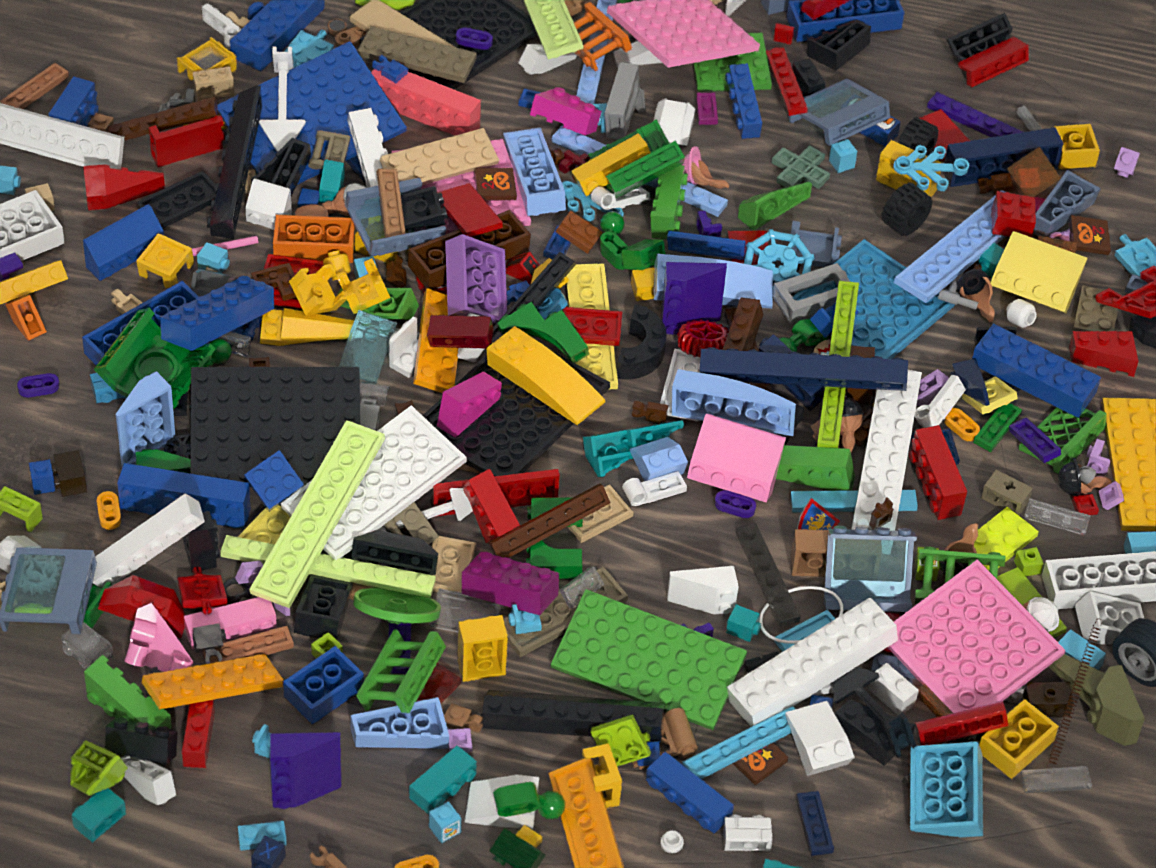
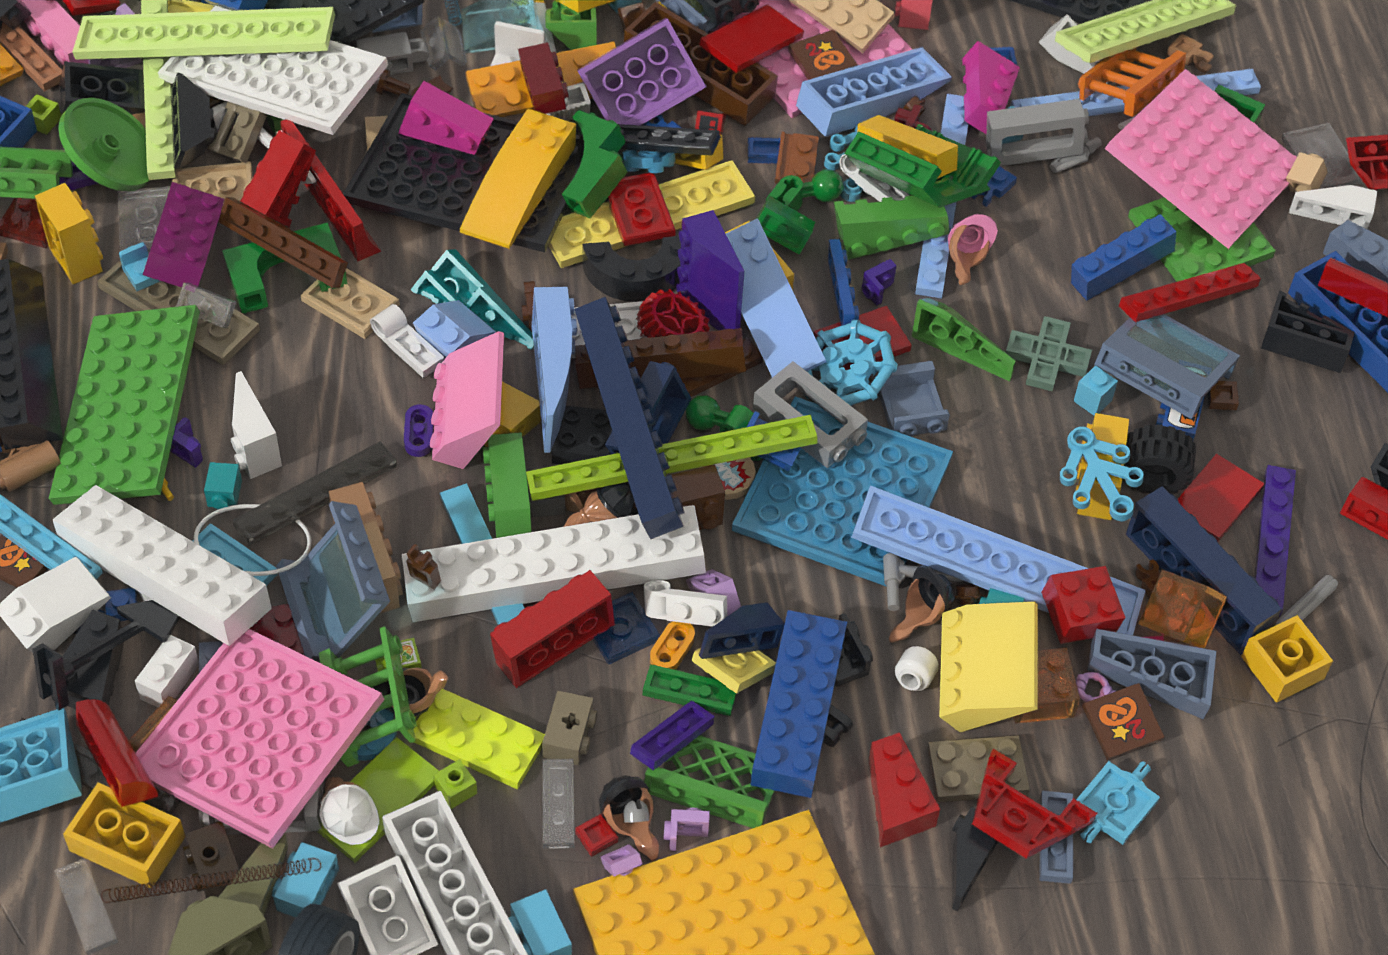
camera: 70 degrees right, 5 degrees up
(675, 120) = (1043, 203): white slope -> none
(706, 108) = (1094, 229): magenta plate -> none
(752, 664) = (169, 519): black piece -> none
(783, 33) = (1286, 271): red tile -> none
(808, 77) = (1217, 315): black brick -> none
(816, 517) = (411, 517): shield -> none
(907, 209) = (1023, 478): black tyre -> none
(1126, 162) = (1294, 732): lavender bracket -> none

